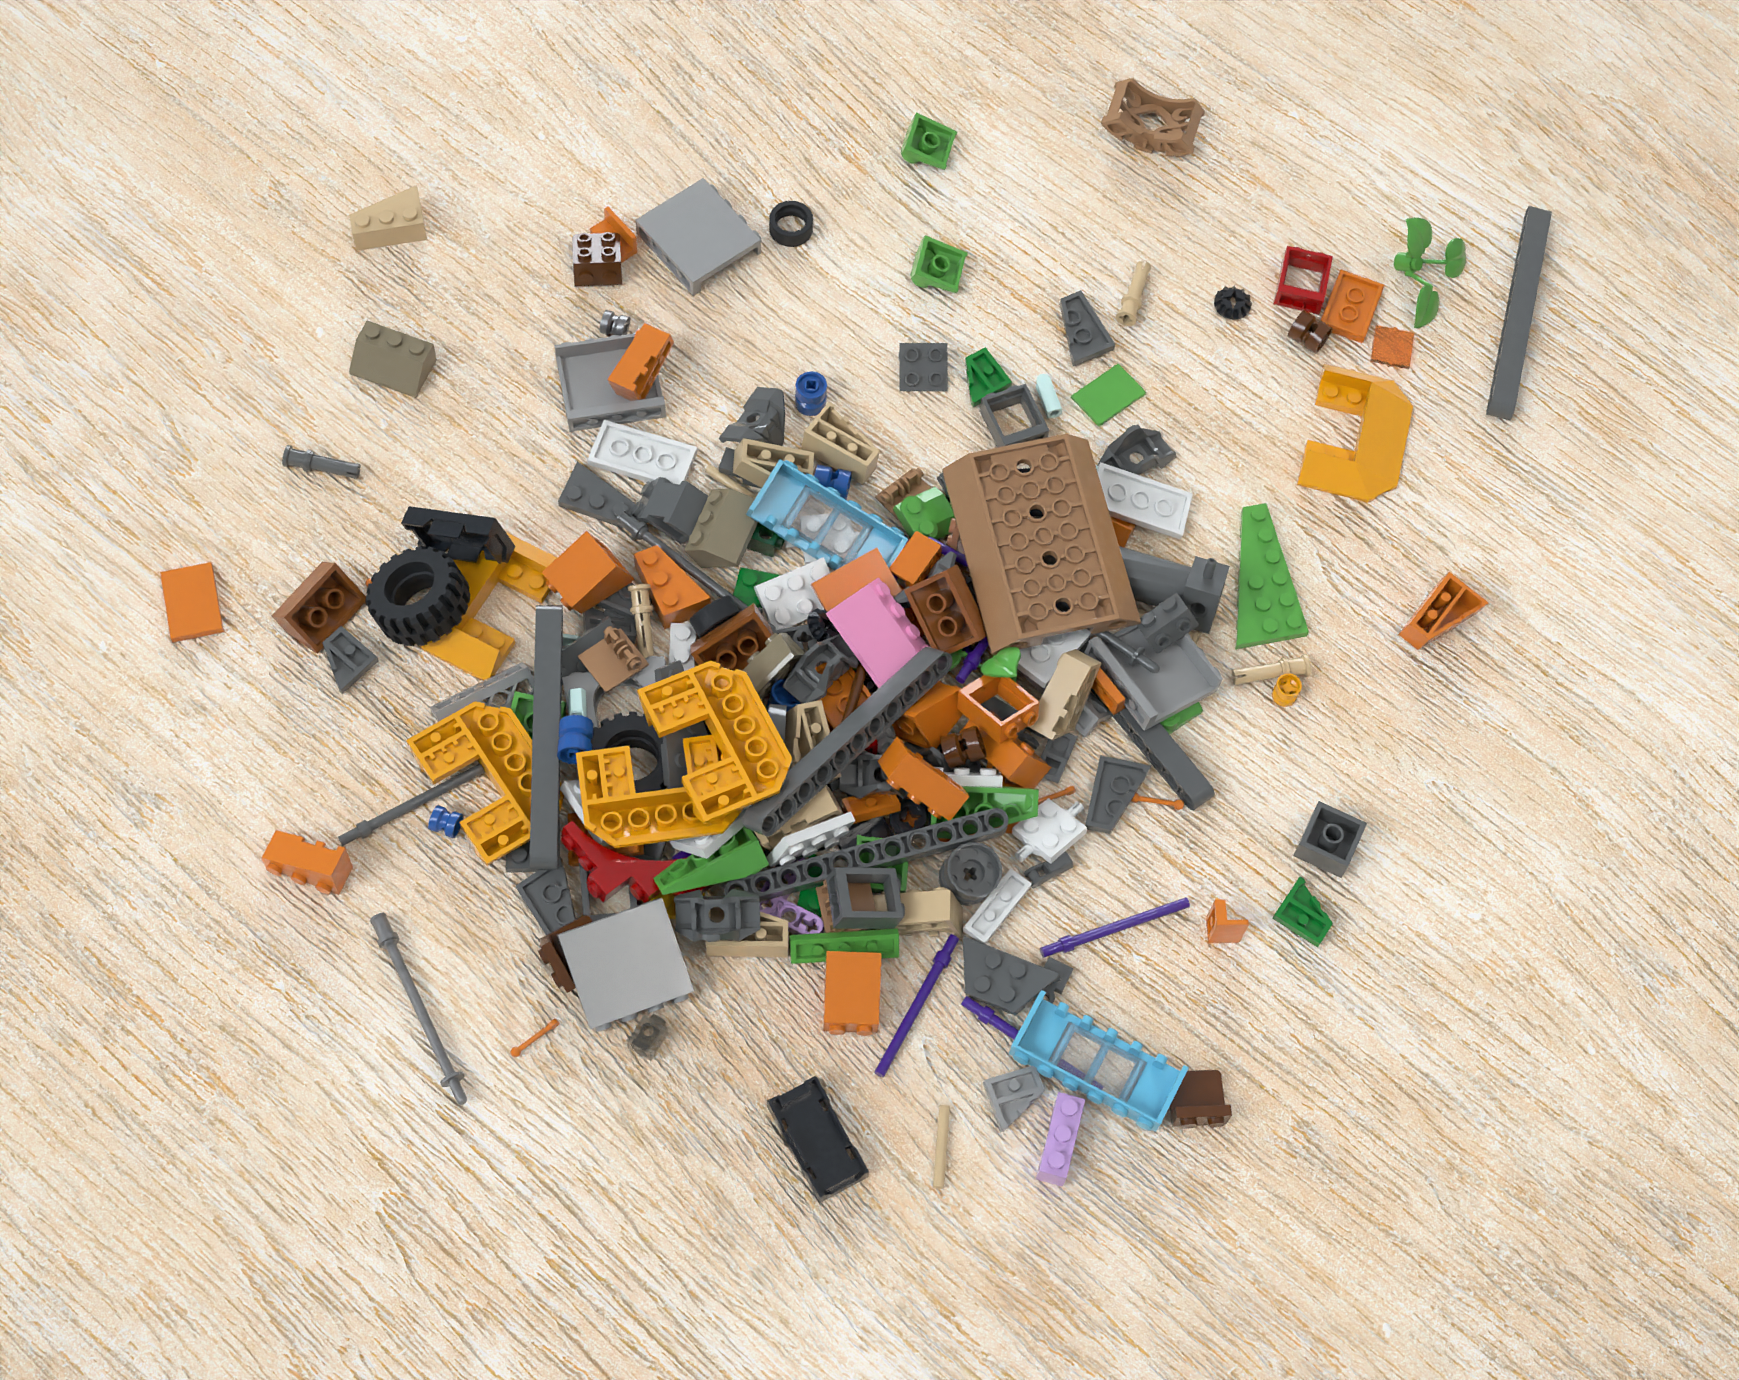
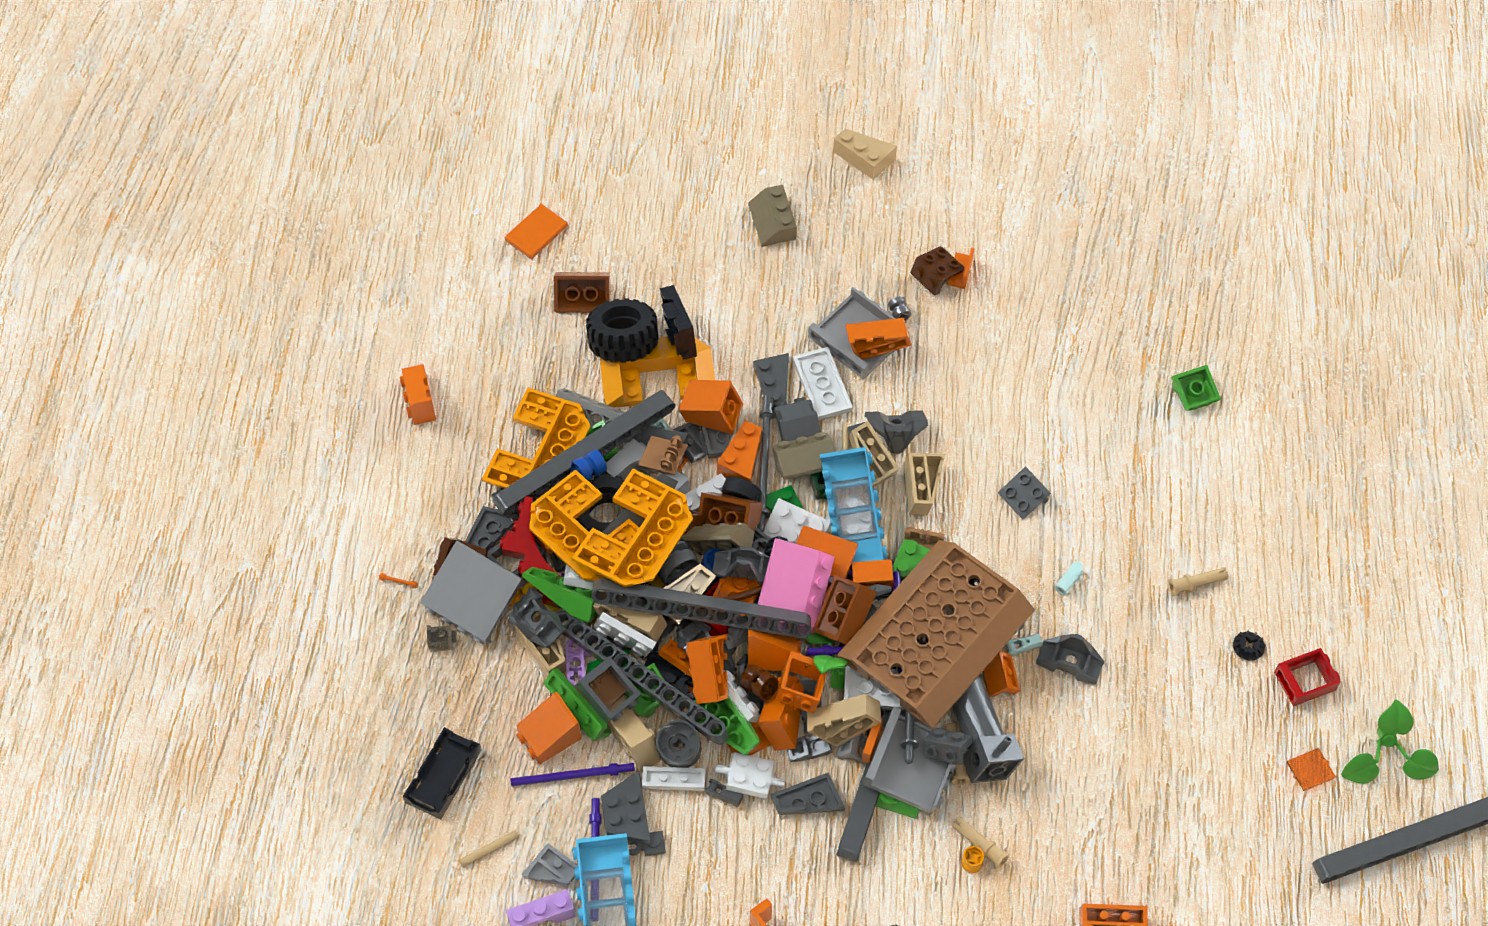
camera: 60 degrees right, 5 degrees down
(309, 460) = (672, 223): dark grey pin -> none
(347, 658) = (561, 327): dark grey wing -> none
(365, 827) = (463, 408): dark grey bar -> none
(388, 940) = (402, 466): flat silver bar -> none
(445, 821) = (496, 440): blue wheel -> none
(577, 702) = (617, 458): light aqua bar -> none
(638, 609) = (712, 448): tan pin -> none
(697, 234) = (1005, 308): light grey panel -> none
(792, 238) = (1061, 365): black tyre -> none
(810, 393) = (945, 441): blue wheel -> none
(838, 480) = (891, 495): blue wheel -> none
(937, 265) = (1107, 453): bright green slope -> none
(984, 376) = (1049, 533): green wing -> none
(1012, 396) = (1025, 584): dark grey window -> none
(1068, 791) = (762, 754): orange hinge -> none
(1068, 943) = (681, 837): dark purple bar -> none
(1083, 329) = (1140, 567): dark grey wing -> none
(1108, 395) = (1106, 614): bright green piece -> none
(1144, 501) = (1037, 680): white plate -> none
(1173, 112) = (1349, 527): medium nougat fence -> none
(1178, 804) = (834, 844): orange hinge -> none
(1266, 593) = (1039, 803): bright green wing -> none
(1309, 331) = (1267, 706): reddish brown wheel -> none
(1352, 305) = (1318, 722): orange tile -> none
(1380, 439) = (1221, 805): light orange slope -> none

